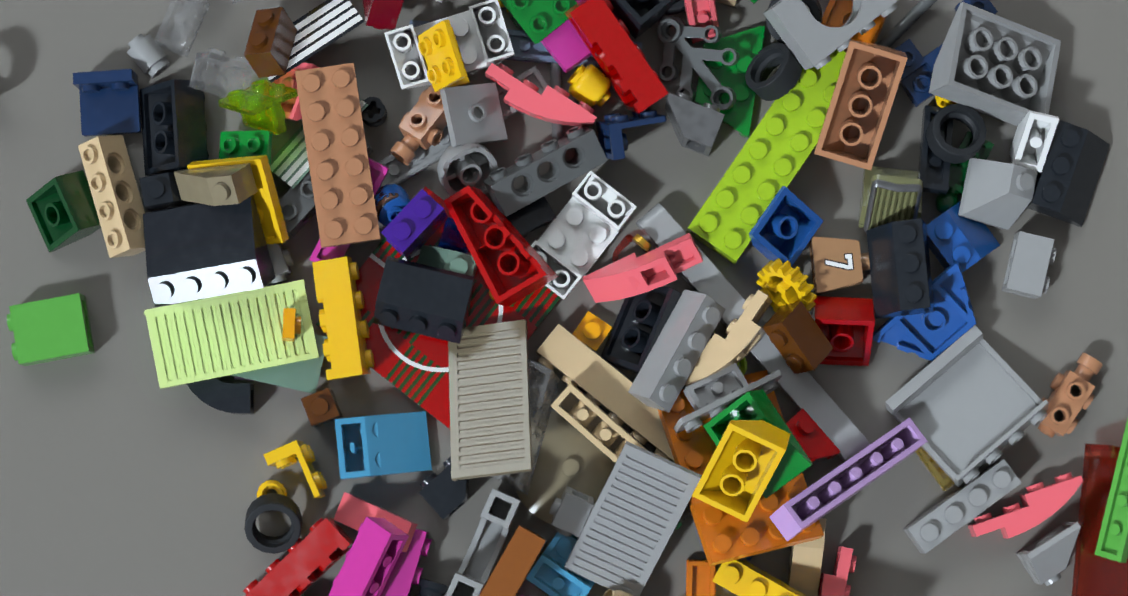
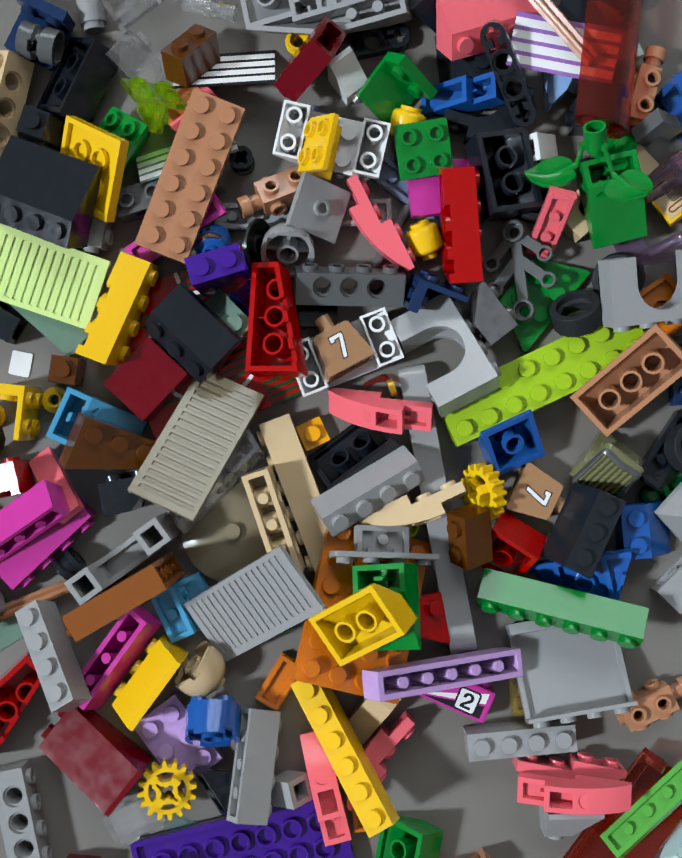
camera: 30 degrees right, 5 degrees up
(130, 114) = (40, 43): none -> dark grey wheel
(216, 184) = (79, 144): dark tan slope -> none
(270, 429) = (20, 363): none -> white sticker
(291, 324) = (76, 291): light orange plate -> none
(315, 443) = (47, 395): none -> yellow plate
(402, 454) = (104, 446): none -> reddish brown wedge
(405, 369) = (147, 379): none -> dark red brick
(430, 181) = (253, 239): none -> pearl dark grey dish
(571, 233) = (339, 348): none -> medium nougat torso
(571, 511) = (212, 566): light grey brick -> none
(712, 182) = (475, 373): none -> light grey arch
(882, 497) = (469, 701): none -> slope
(924, 355) = (562, 608): none -> brick
(1041, 523) = (575, 796): none -> coral slope

